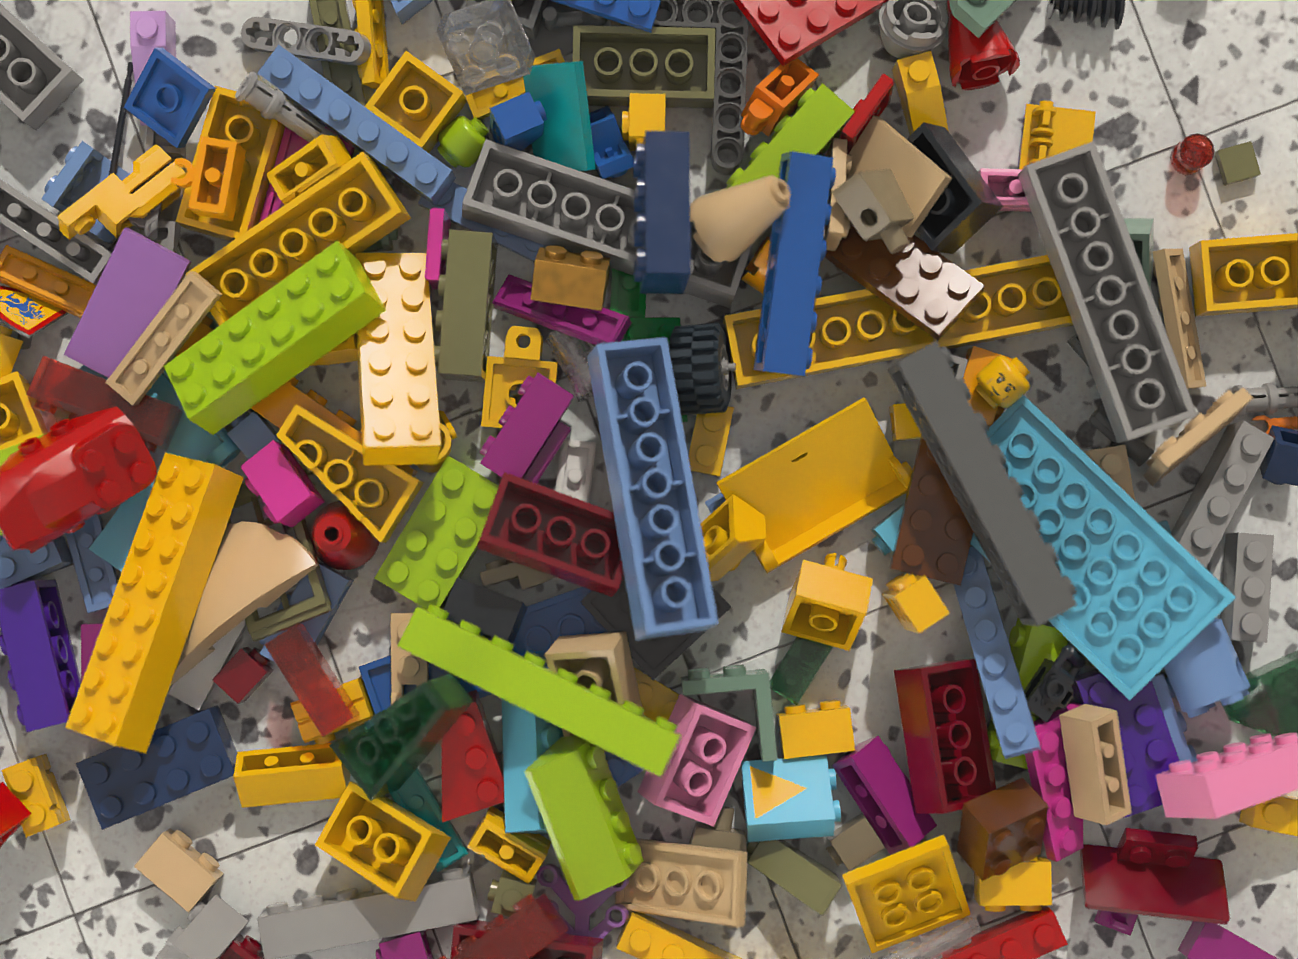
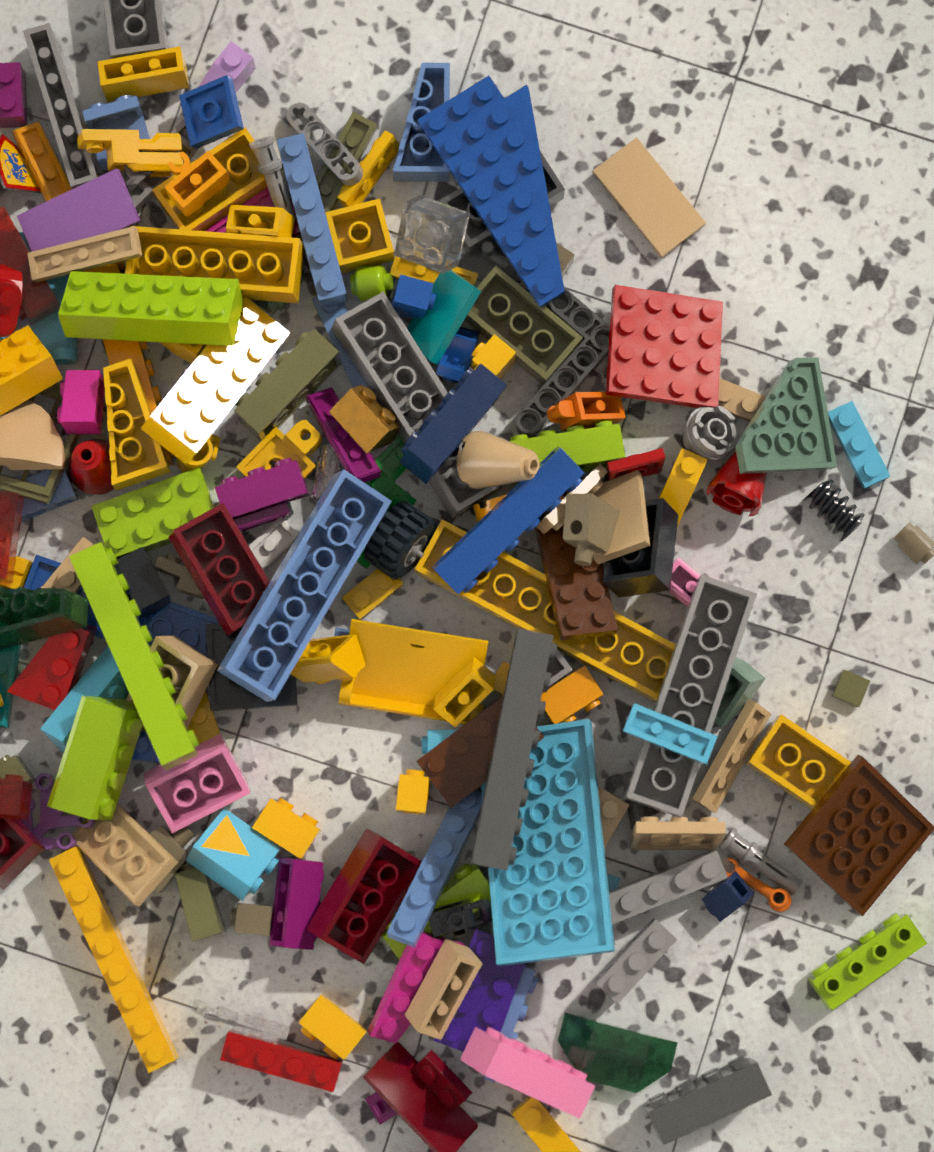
camera: 35 degrees right, 5 degrees down
(70, 114) = (143, 74): none -> yellow brick
(121, 120) = (170, 103): black piece -> none
(252, 433) = (90, 356): medium blue brick -> none
(437, 231) = (310, 321): dark pink tile -> none
(513, 852) = (35, 747): yellow brick -> none
(738, 678) = (269, 777): sand green bracket -> none
(799, 668) = (313, 778): clear green slope -> none
(827, 603) = (358, 751): yellow brick -> none
(882, 464) = (464, 692): none -> yellow brick
(907, 894) = (258, 976): yellow plate -> none
(1002, 829) = (351, 983): reddish brown brick -> none
(1003, 381) = (582, 701): yellow head -> none
(1053, 131) = (752, 573): yellow hinge -> none
(1124, 345) = (669, 733): none -> medium azure plate
(1199, 150) = (829, 657): clear red wheel -> none
(1207, 672) = (564, 989): medium blue cylinder -> none

